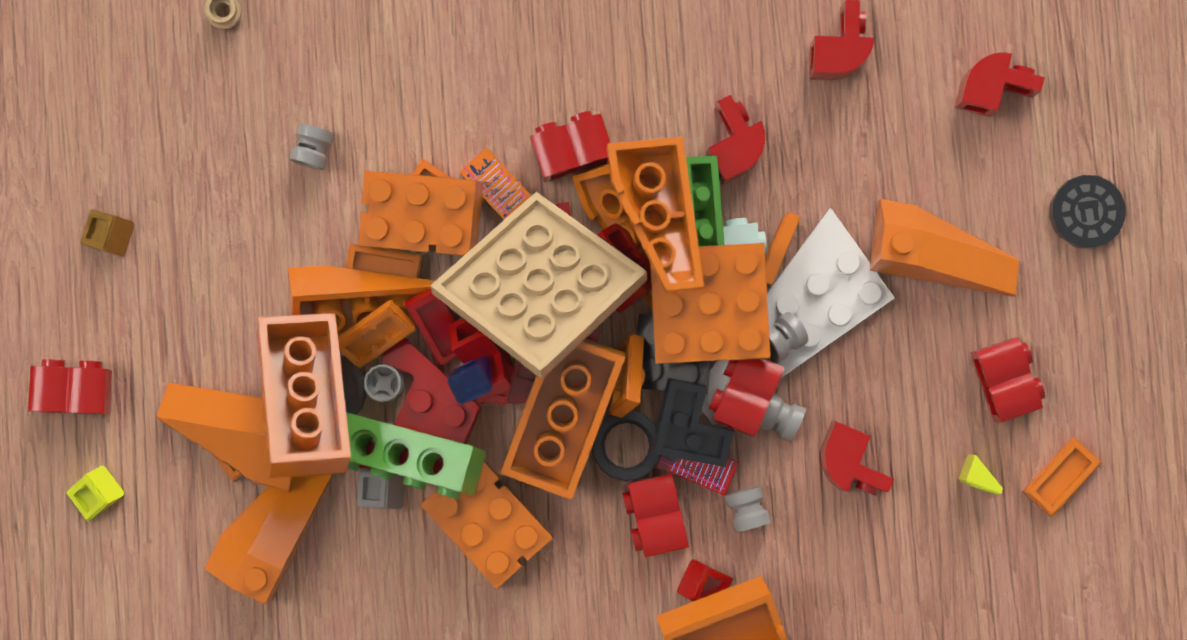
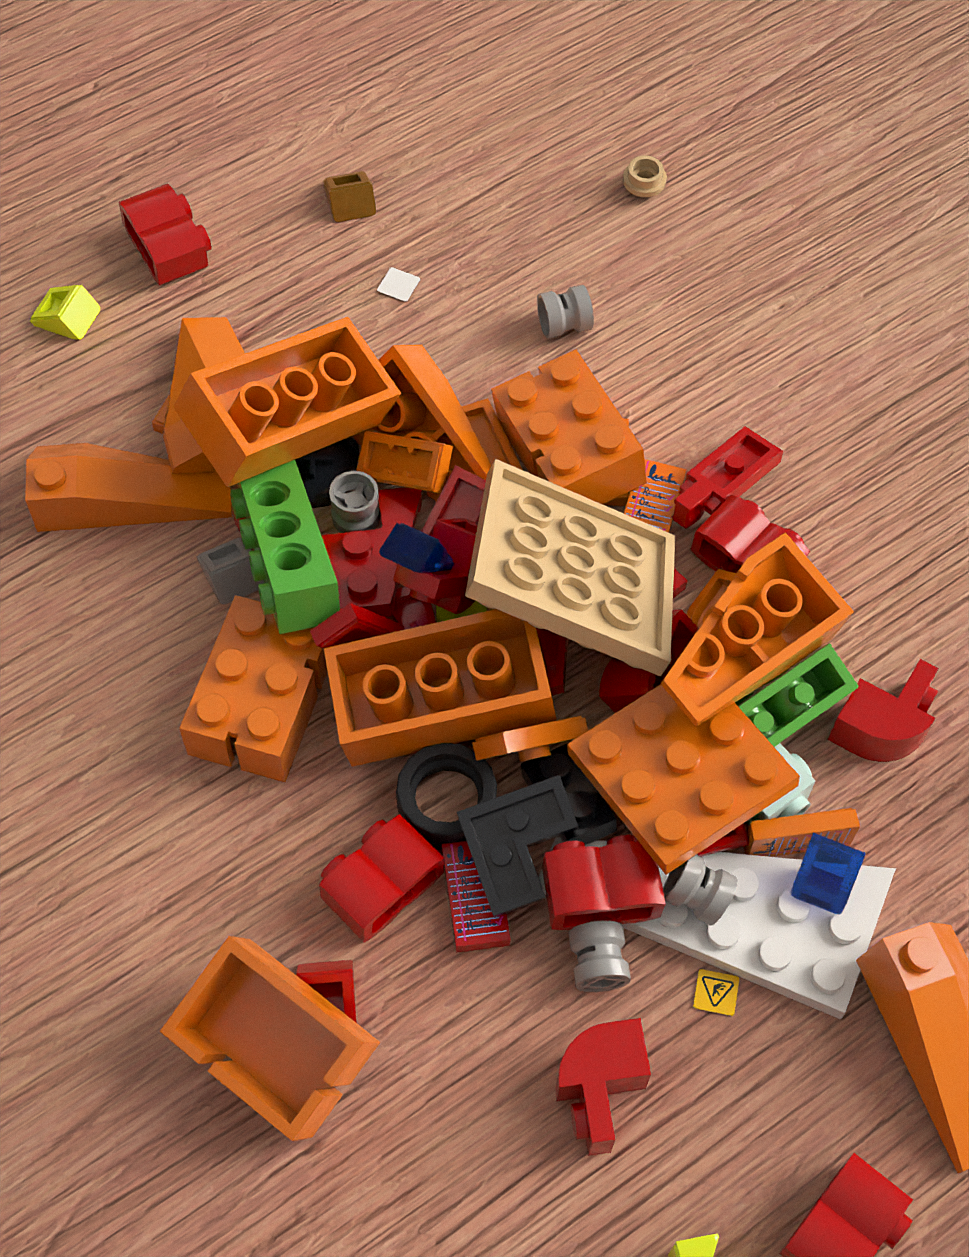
camera: 60 degrees right, 25 degrees down
(208, 243) = (398, 284): none -> white sticker
(496, 441) = (351, 625): none -> red tile
(508, 124) = (724, 472): none -> red hinge
(749, 512) = (453, 986): light grey wheel -> none
(816, 256) = (827, 874): none -> clear blue slope
(835, 359) = (716, 992): none -> yellow sticker

